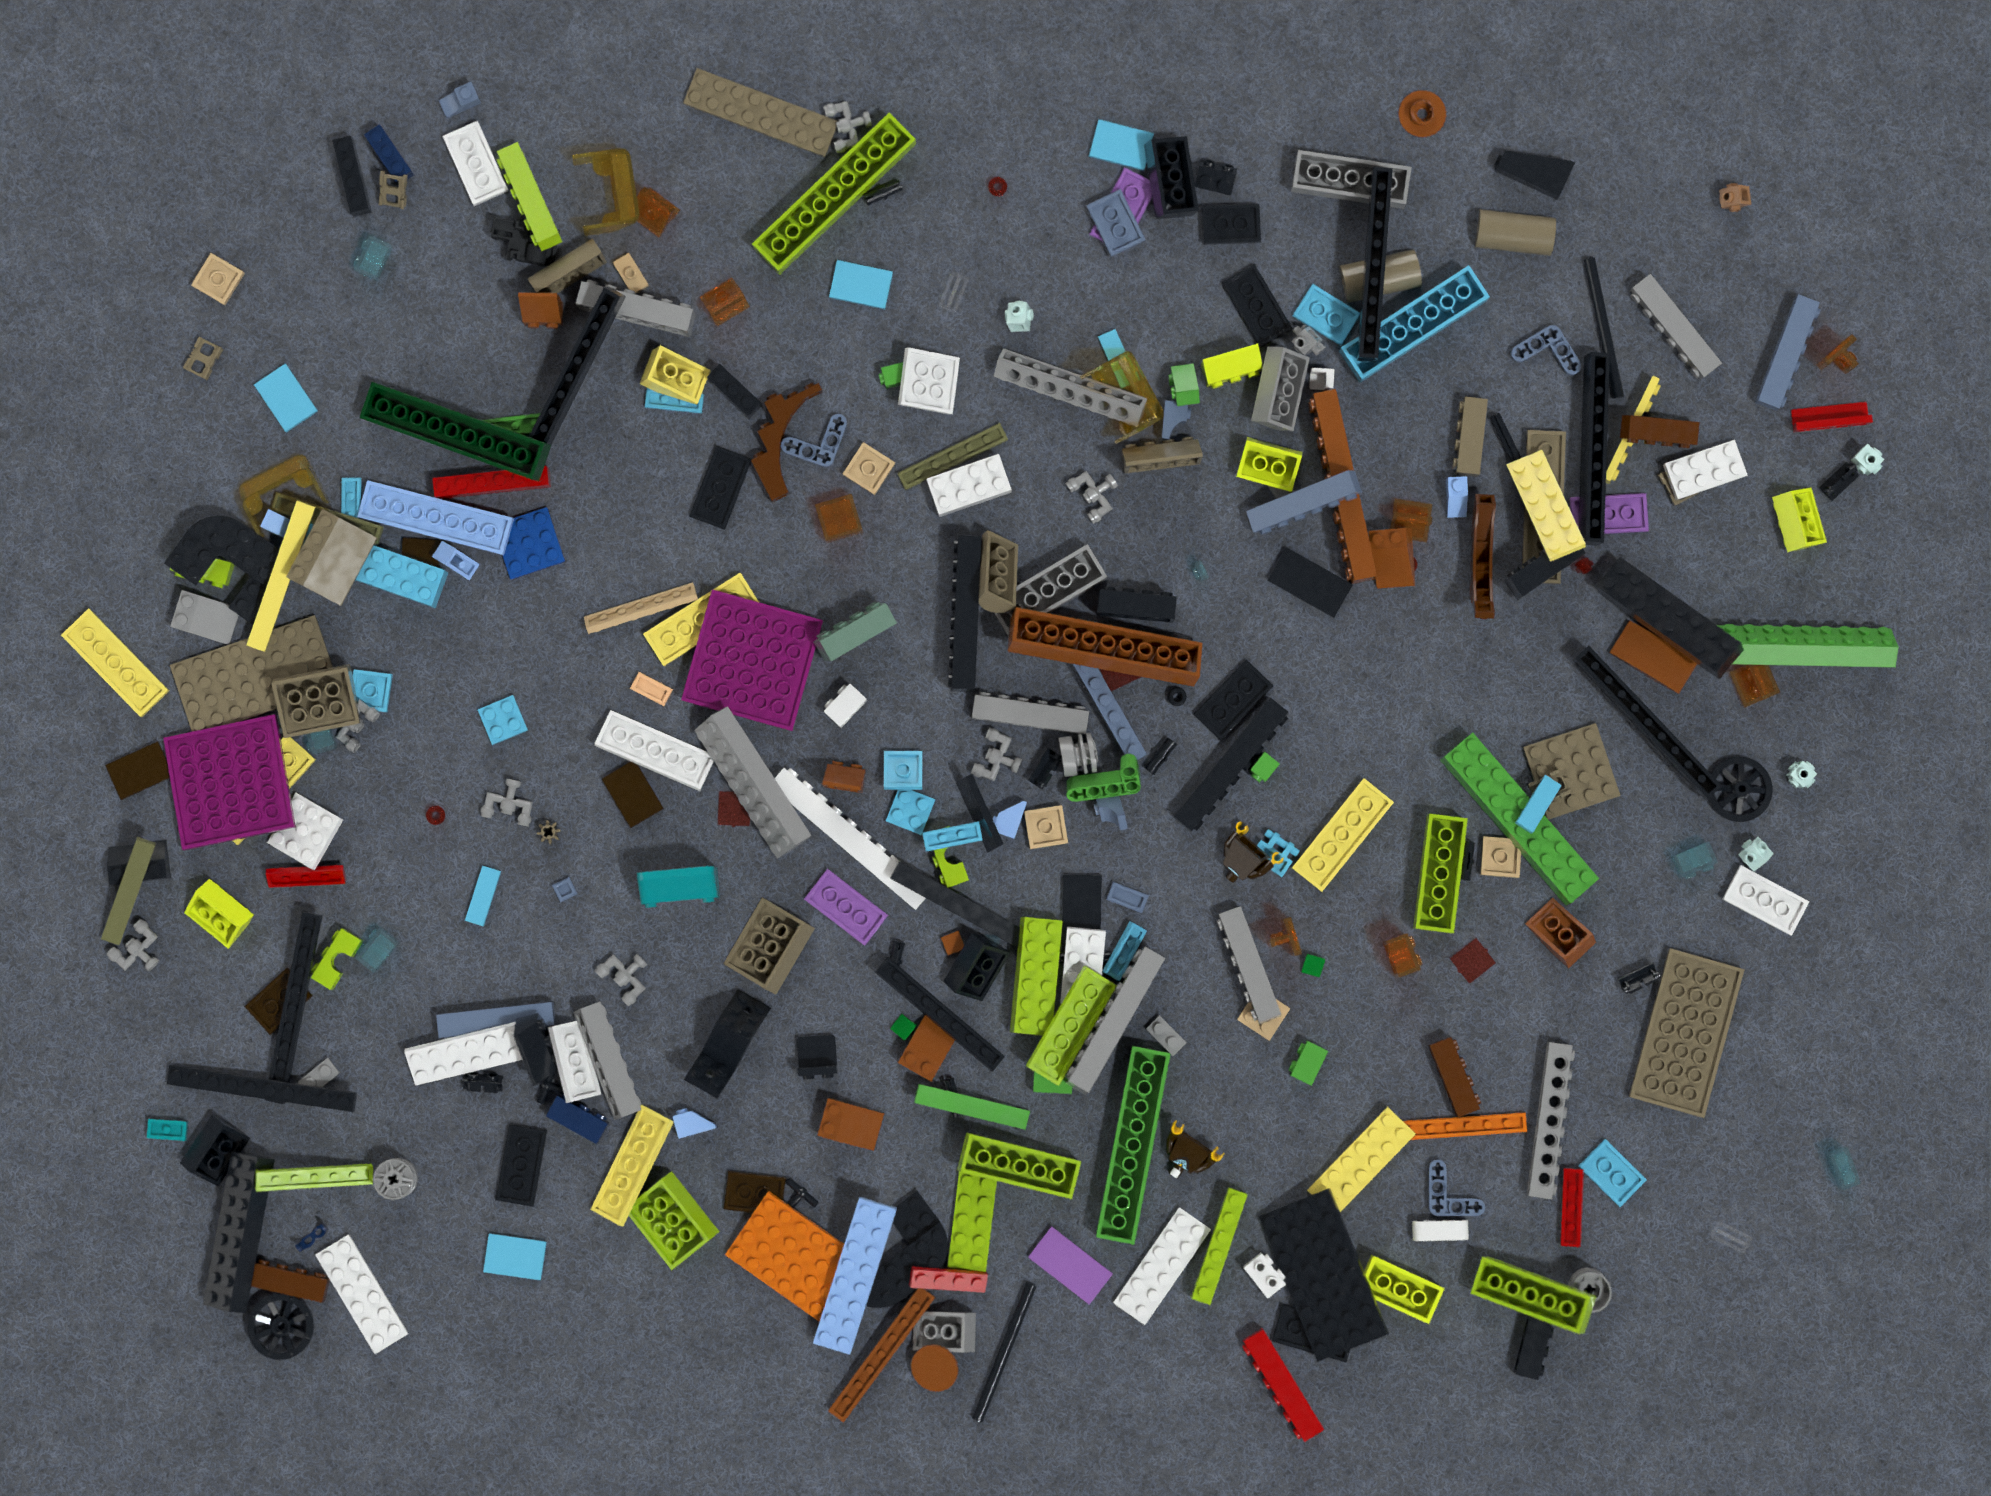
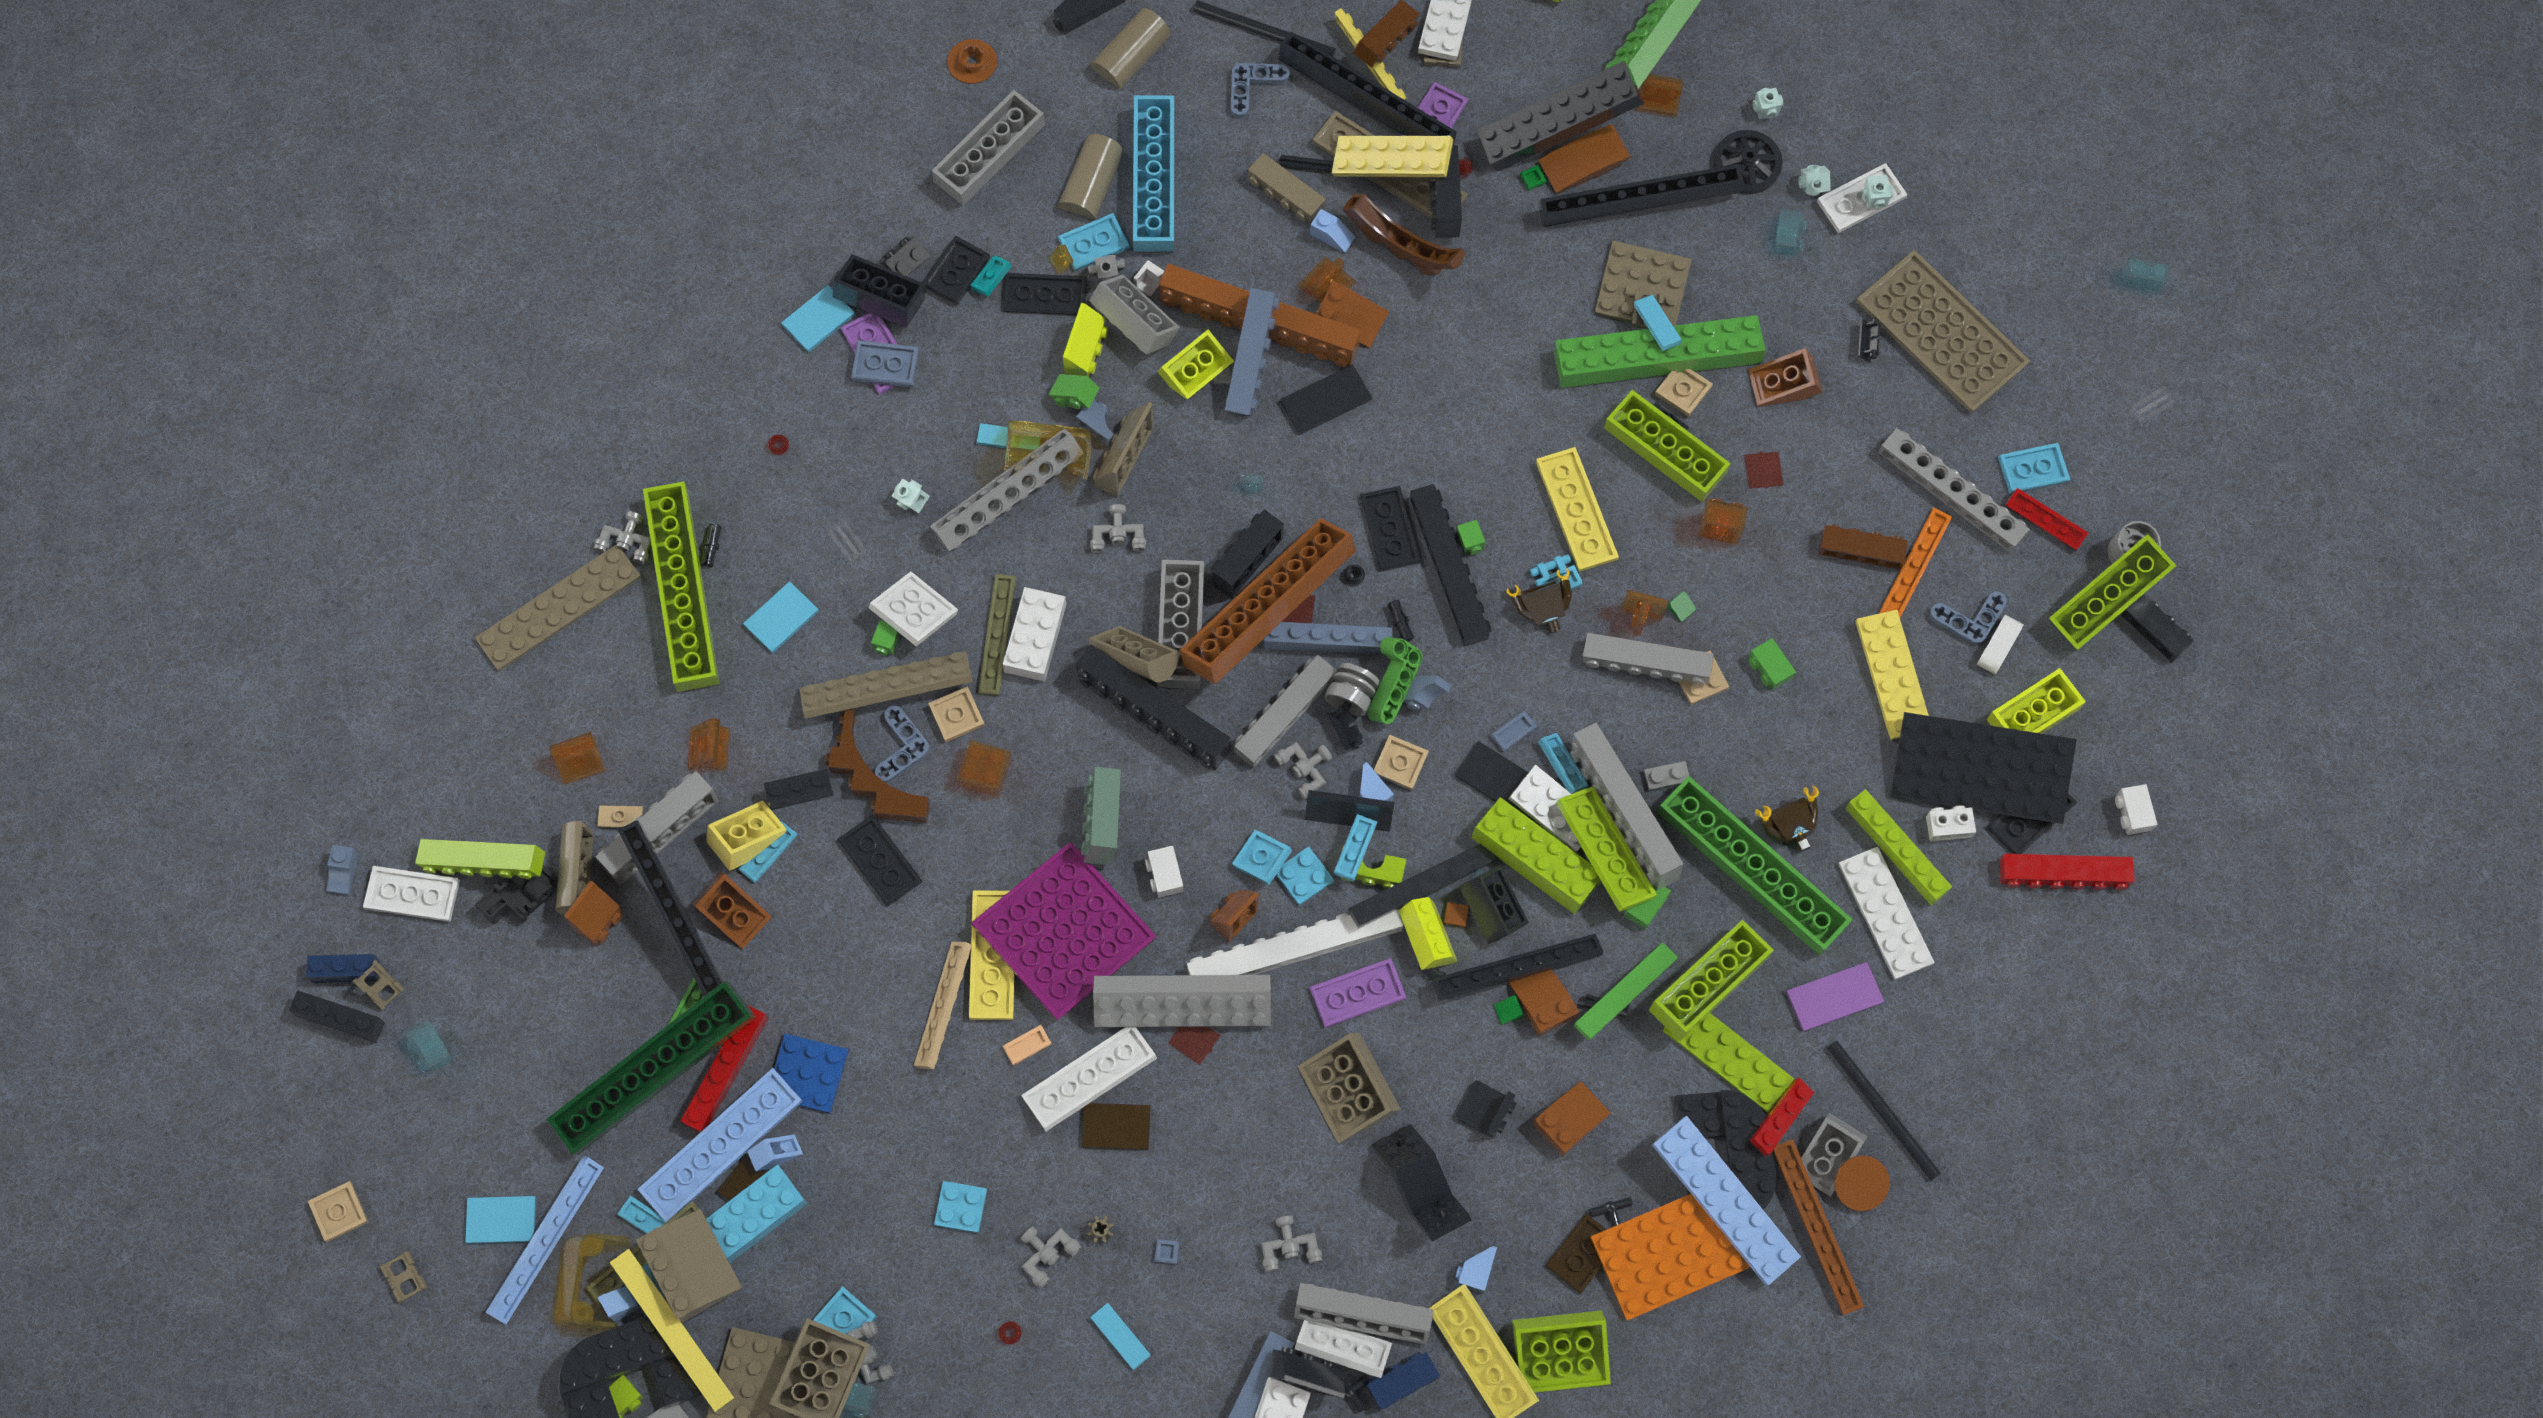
camera: 60 degrees left, 15 degrees down
(291, 439) = (544, 1240): none -> light blue plate
(612, 404) = (731, 910): none -> dark orange slope
(618, 166) = (519, 762): clear yellow windscreen -> none
(678, 885) = (1234, 1132): teal windscreen -> none
(856, 401) = (885, 684): none -> dark tan plate
(921, 932) = (1427, 934): none -> neon yellow slope
(1243, 254) = (991, 275): none -> teal plate
(1293, 299) = (1061, 259): none -> clear yellow plate
(1366, 1411) = (2136, 809): none -> white brick
(1374, 264) = (1080, 165): black brick -> none
(1611, 625) = (1533, 178): none -> green tile
(1779, 908) = (1877, 191): none -> light aqua brick

